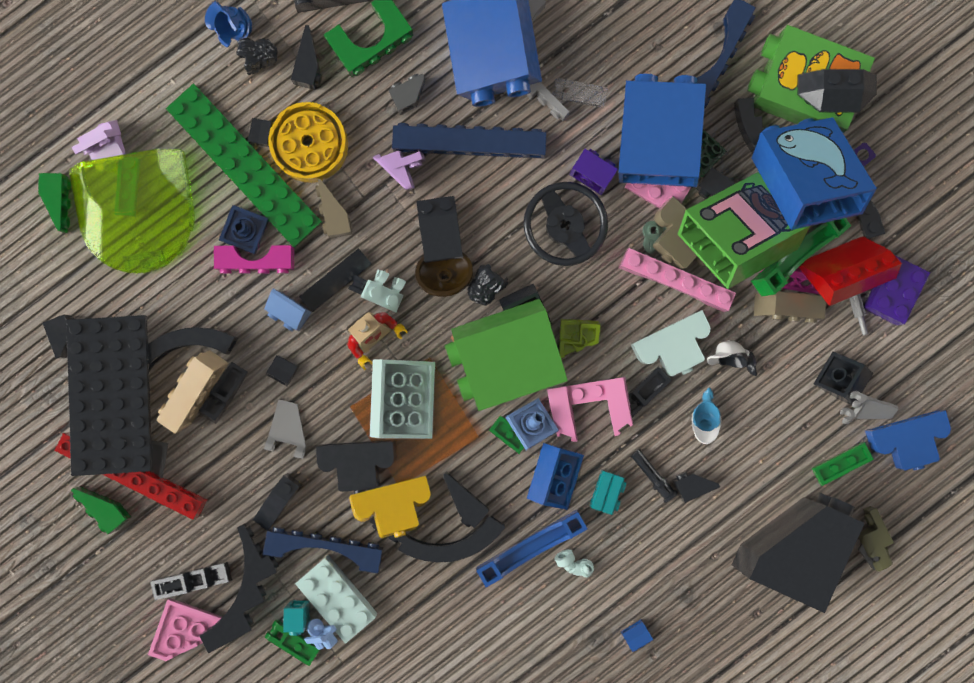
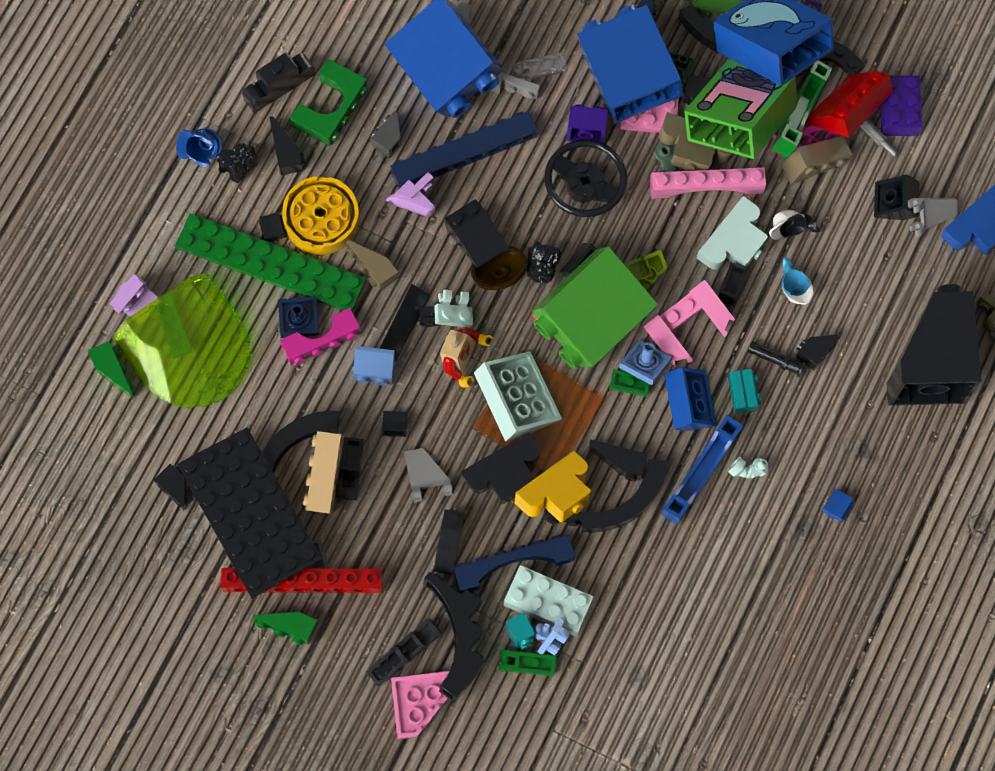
camera: 30 degrees left, 15 degrees down
(842, 463) = (935, 271): green plate -> none

